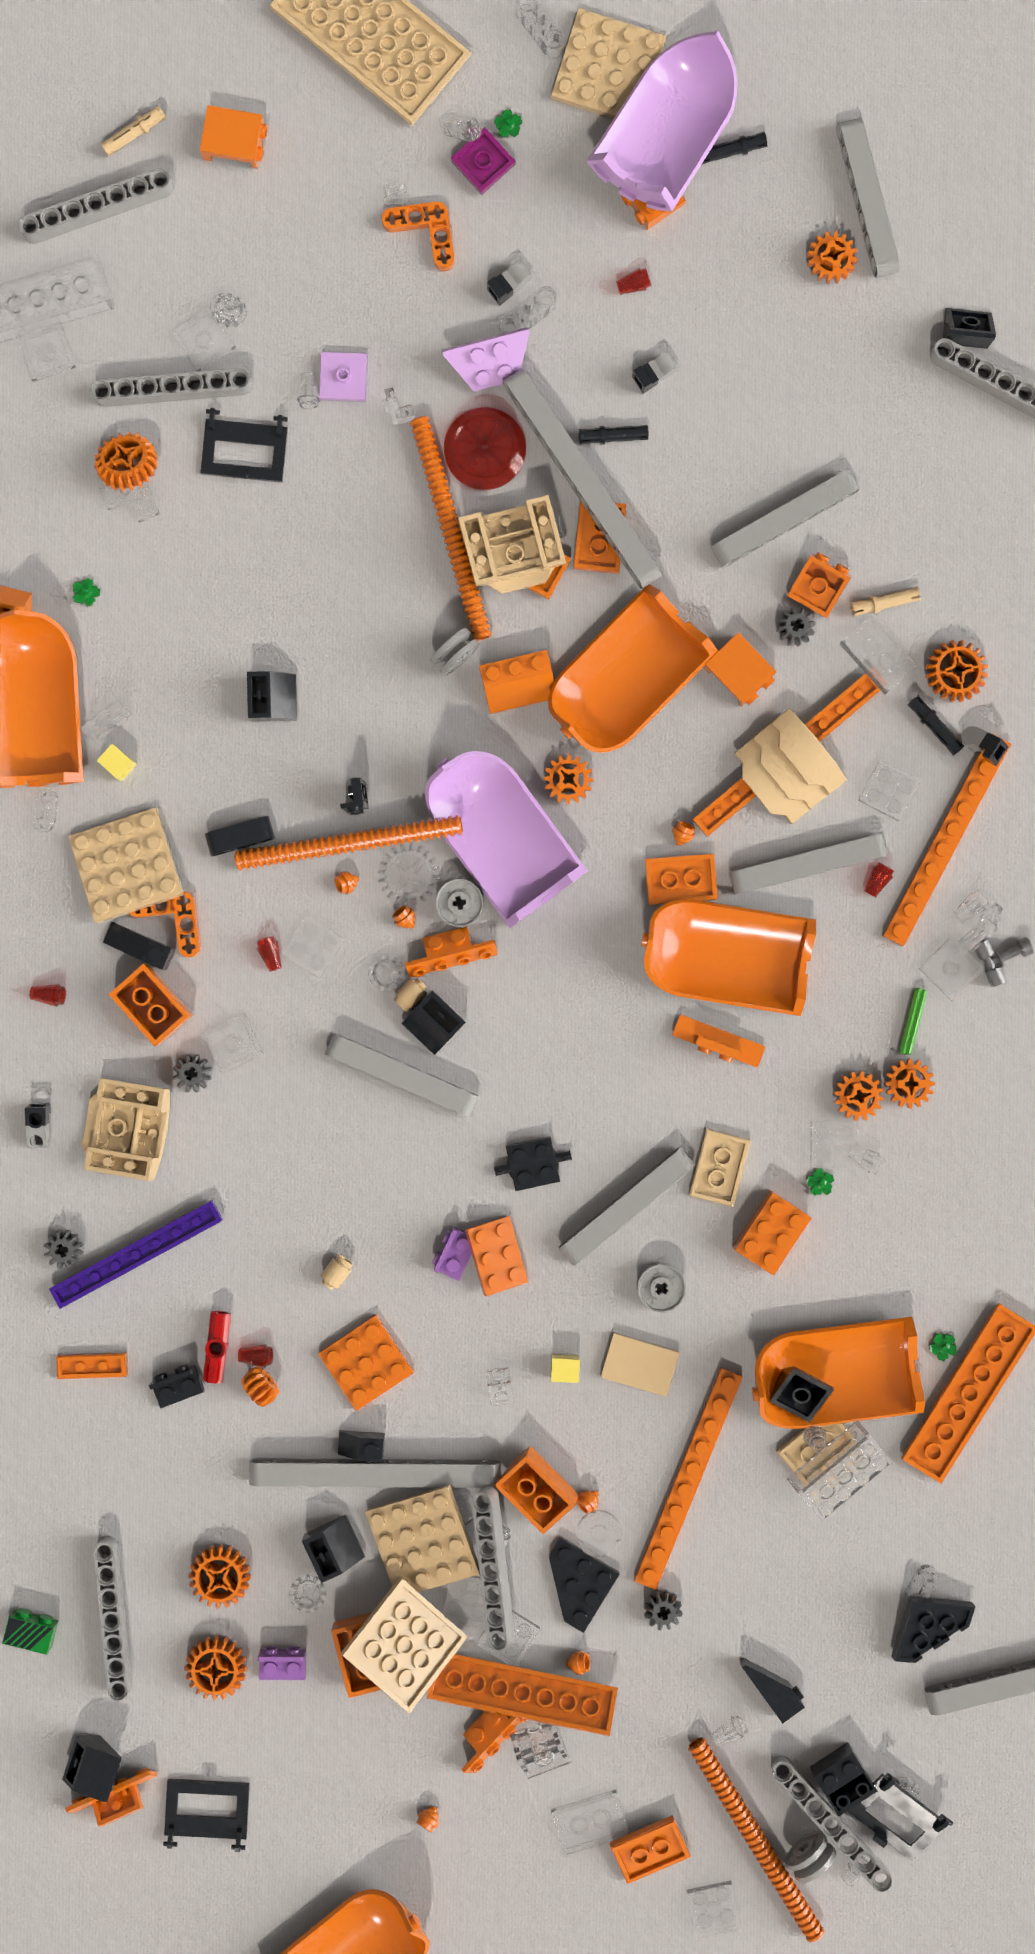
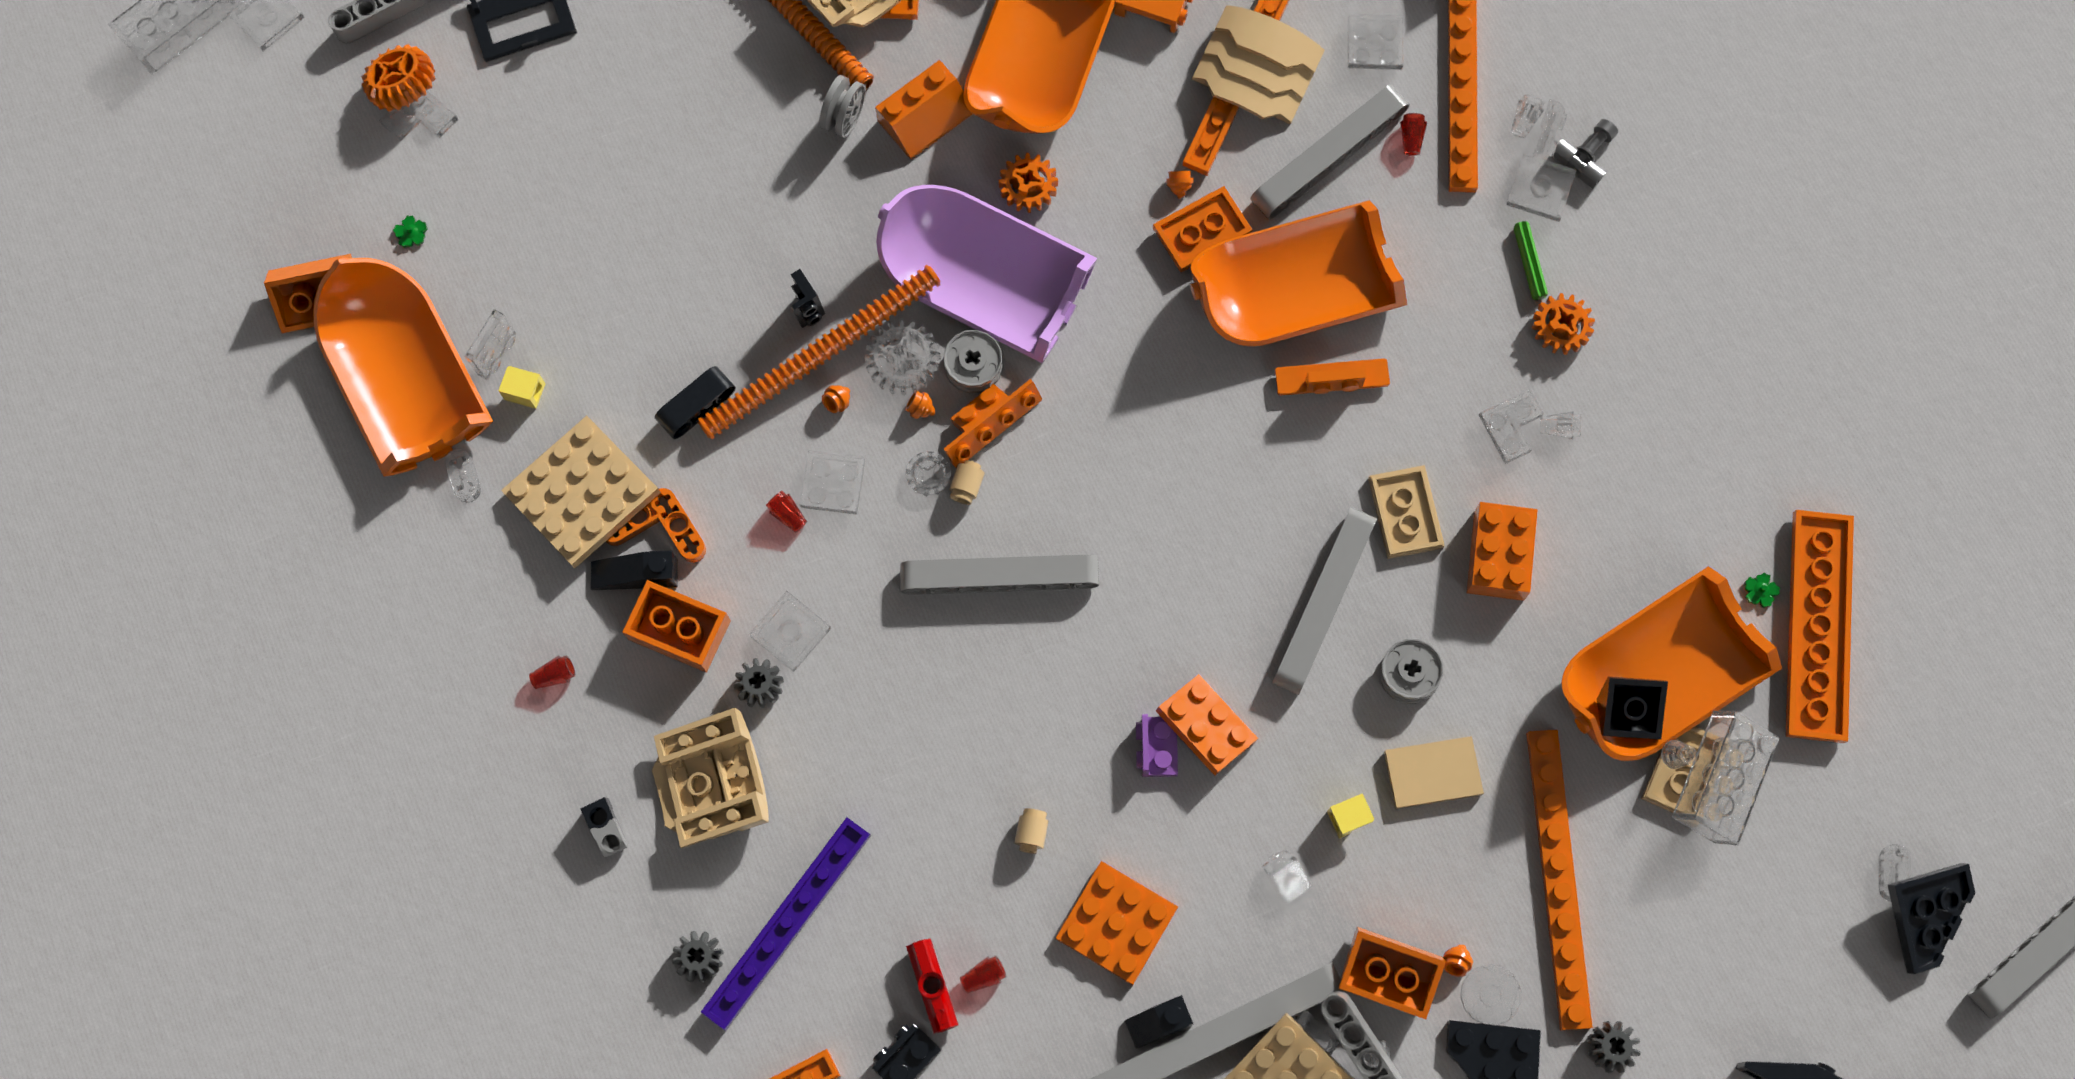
camera: 25 degrees left, 15 degrees down
(260, 1386) = (1005, 1006): orange gear -> none
(271, 696) = (663, 241): black slope -> none
(433, 1022) = (1007, 498): black slope -> none
(532, 1163) = (1195, 604): black plate -> none
(820, 1182) = (1525, 476): green plant -> none
(861, 1105) = (1513, 350): orange gear -> none

